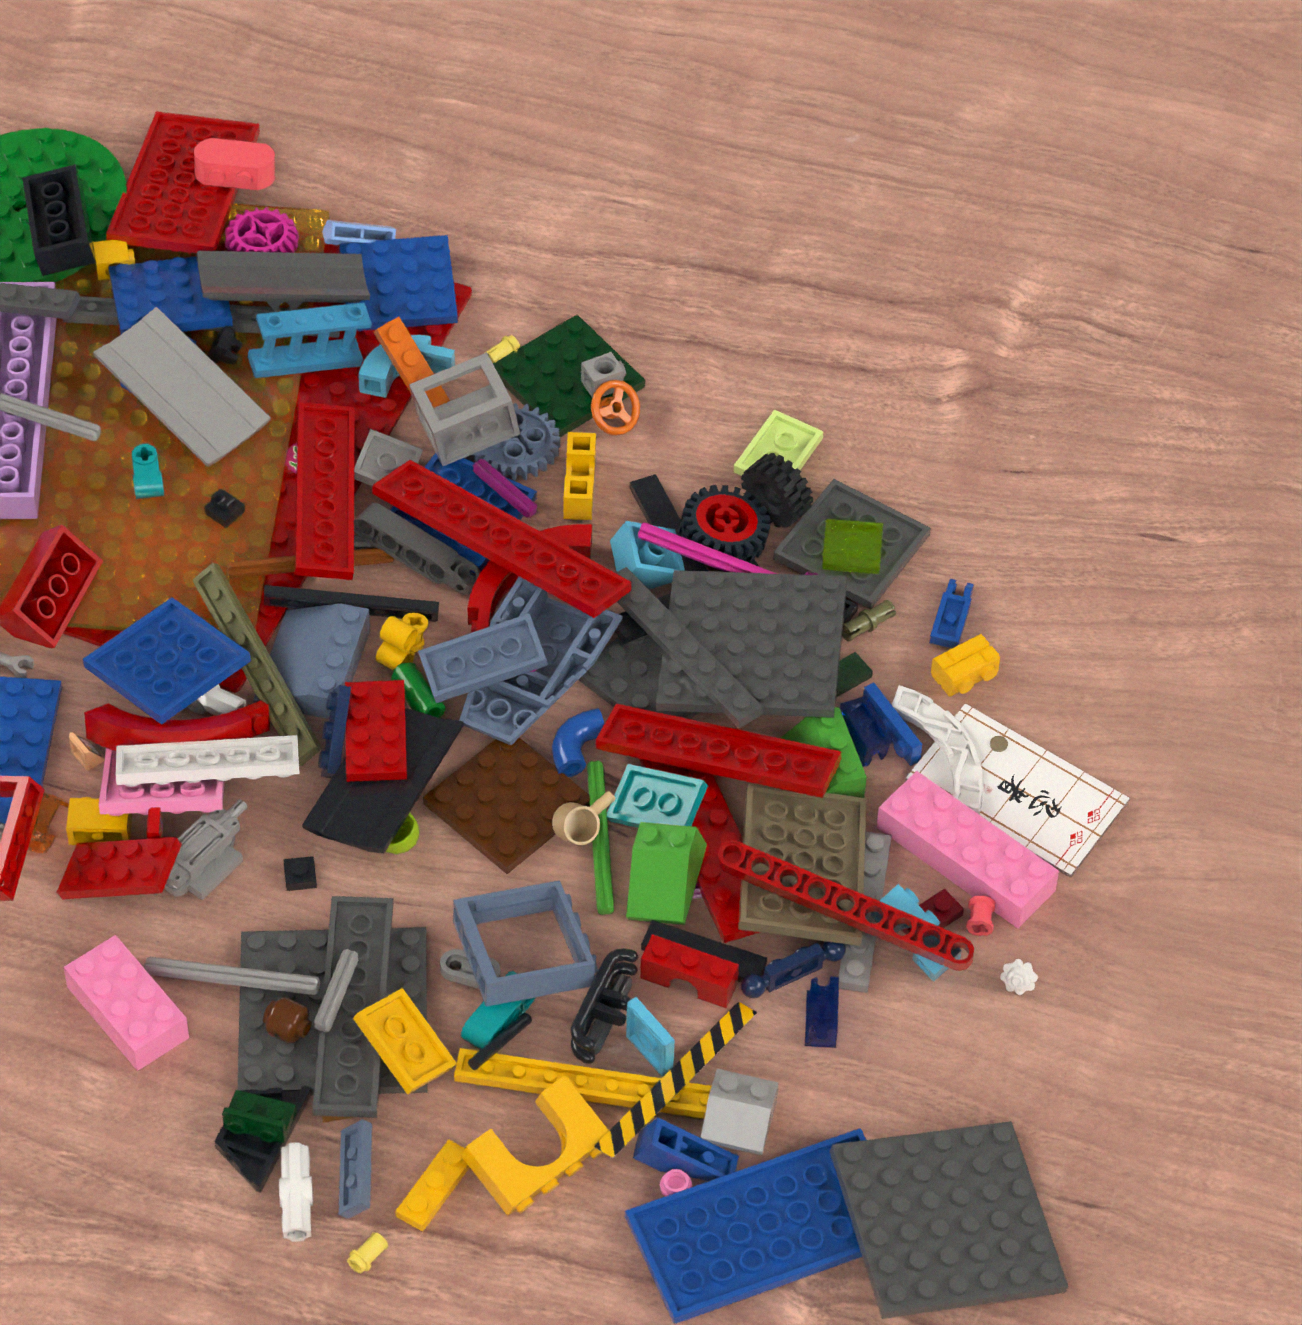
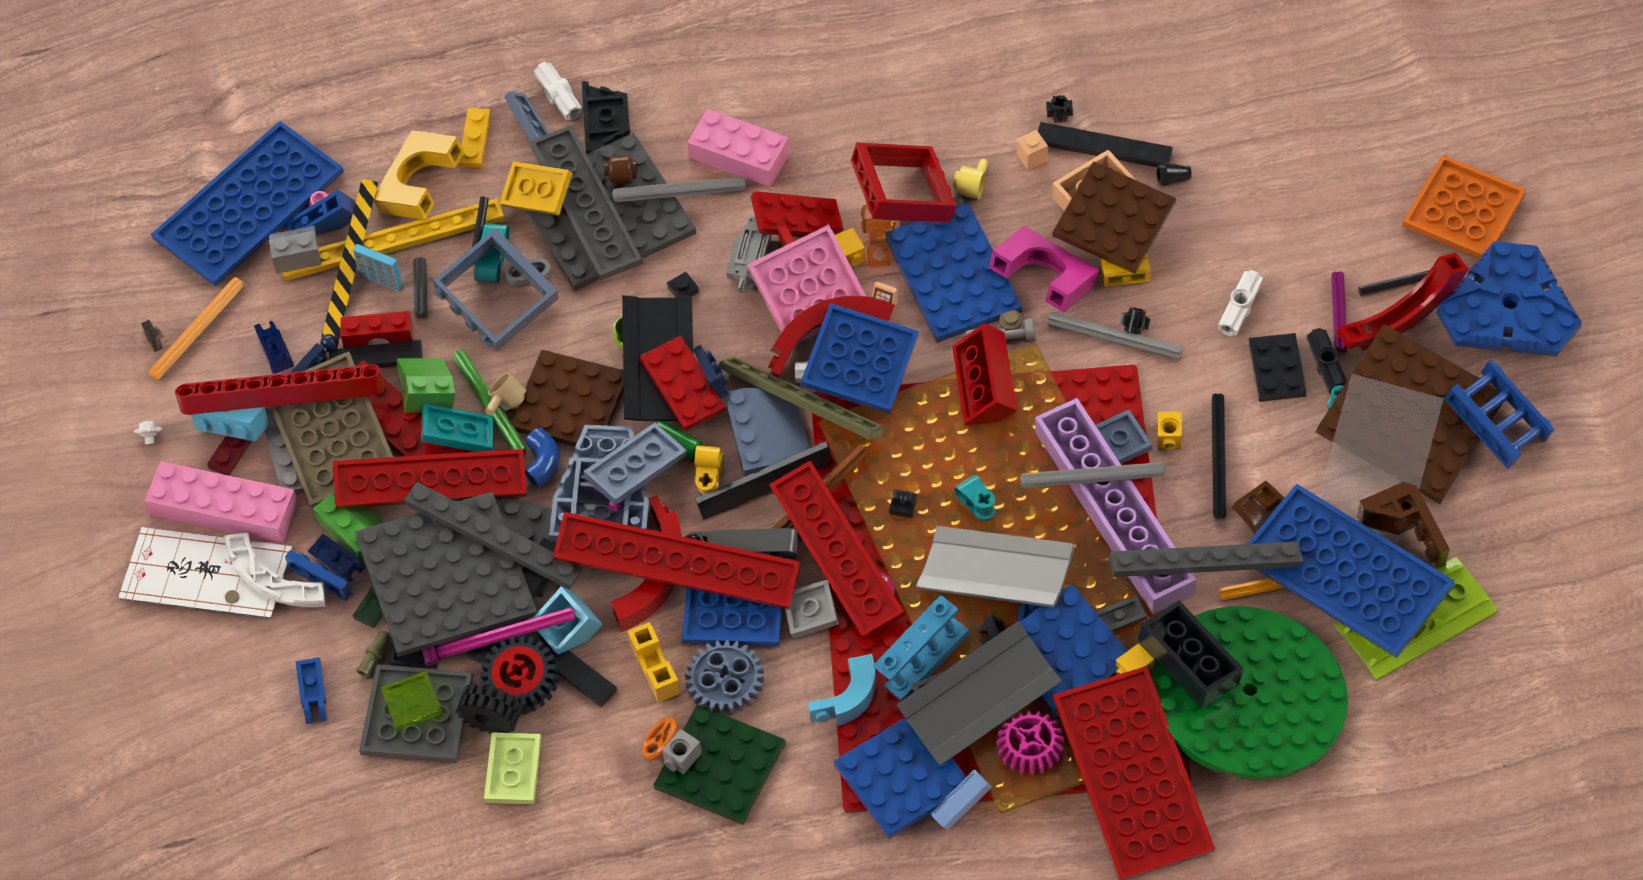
camera: 160 degrees right, 5 degrees up
(207, 760) = (780, 298): white plate -> none
(234, 164) = (1095, 792): coral brick -> none
(259, 1116) = (604, 111): dark green bracket -> none
(336, 990) = (598, 195): light grey axle -> none
(361, 1259) = (494, 74): light yellow pin -> none
(408, 358) = (830, 681): orange plate -> none
(469, 421) = (760, 654): light grey piece -> none
(505, 347) = (781, 762): light yellow pin -> none
(505, 488) = (704, 622): magenta axle -> none
(599, 999) = (422, 279): black piece -> none
(905, 1088) = (196, 328): none -> light orange axle
(947, 1219) = (131, 251): dark grey plate -> none
(965, 665) = (282, 647): yellow brick -> none
(965, 1095) = (153, 335): none -> clear smoke plate
(980, 915) = (191, 458): coral bush -> none

